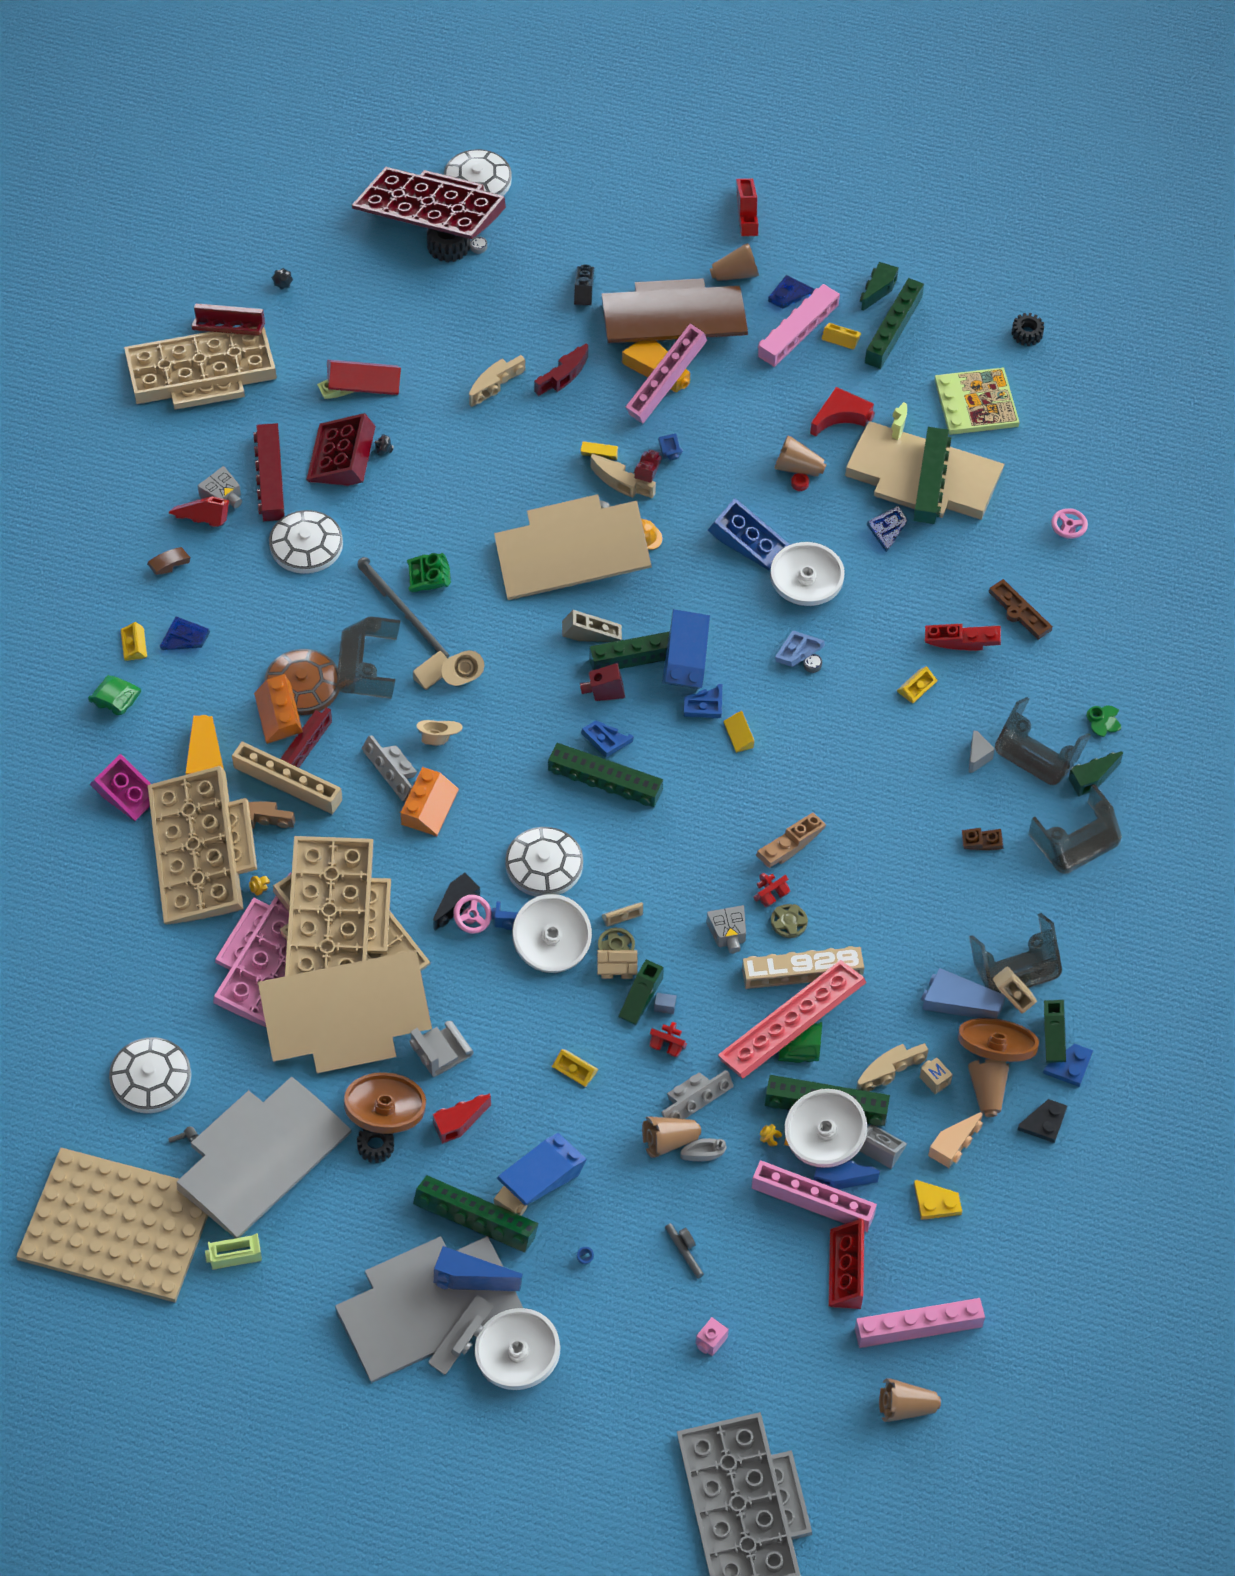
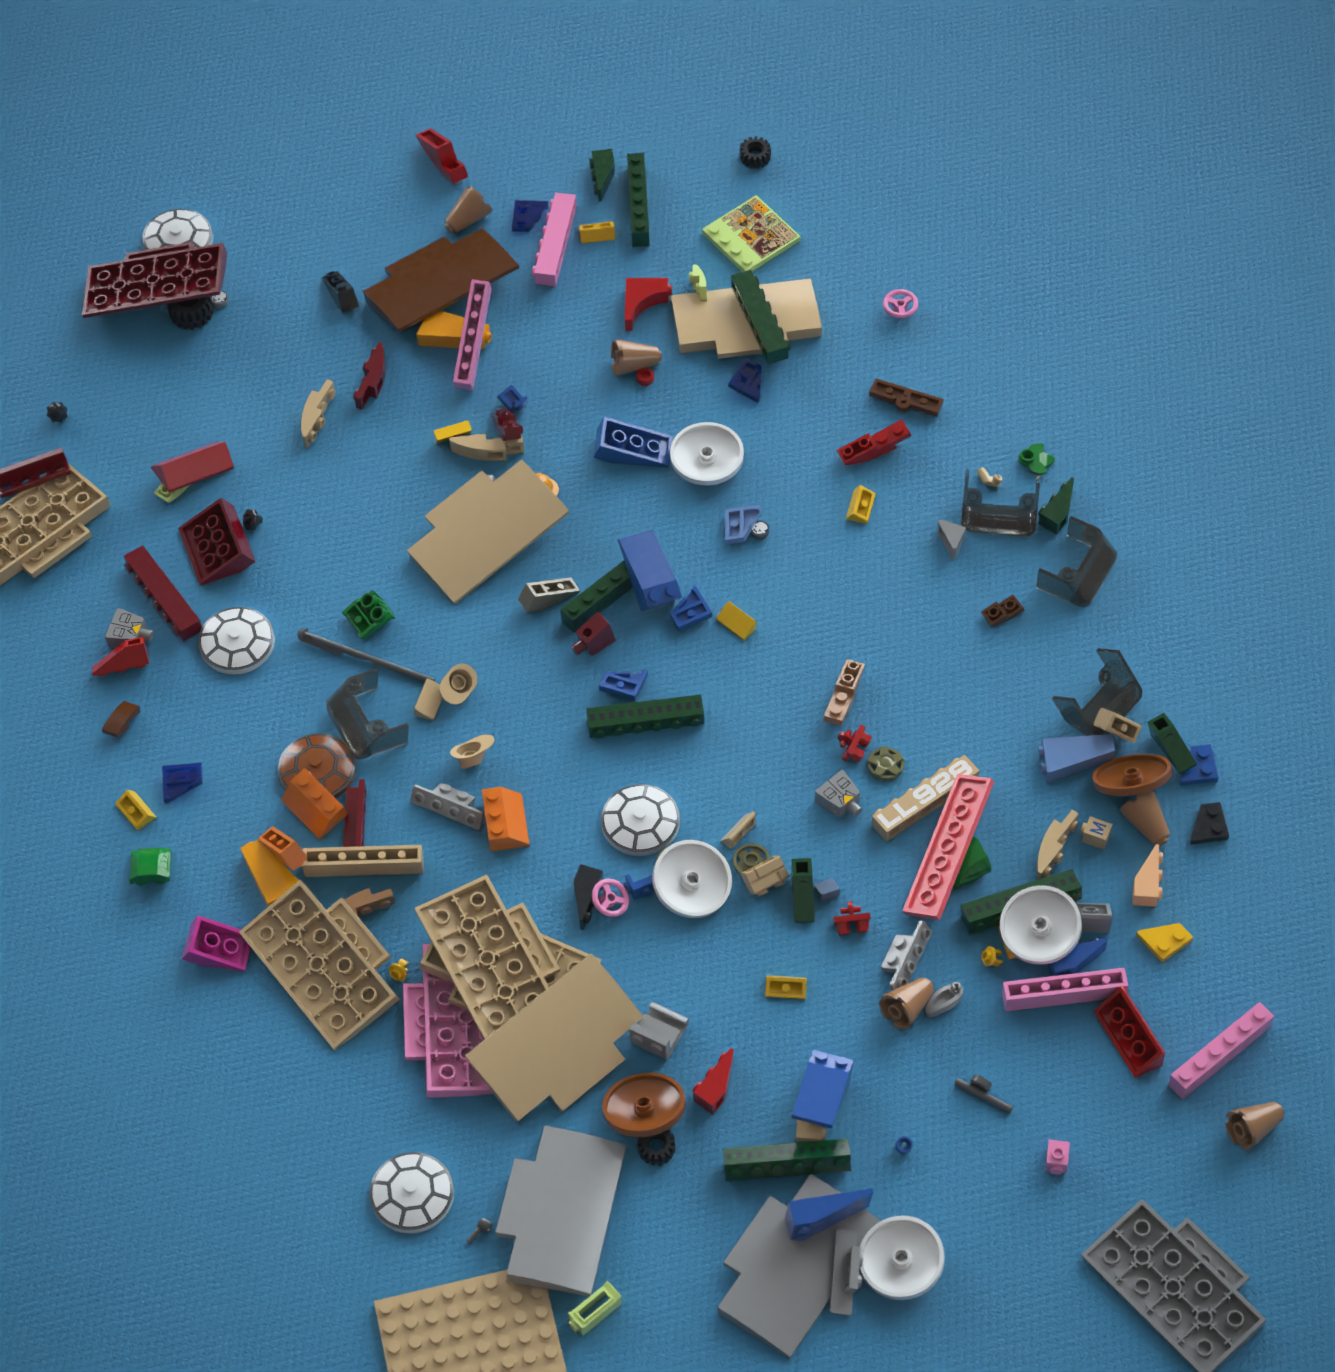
camera: 25 degrees left, 0 degrees up
(225, 733) = (283, 848): none -> orange brick
(1050, 721) = (994, 481): none -> tan arm

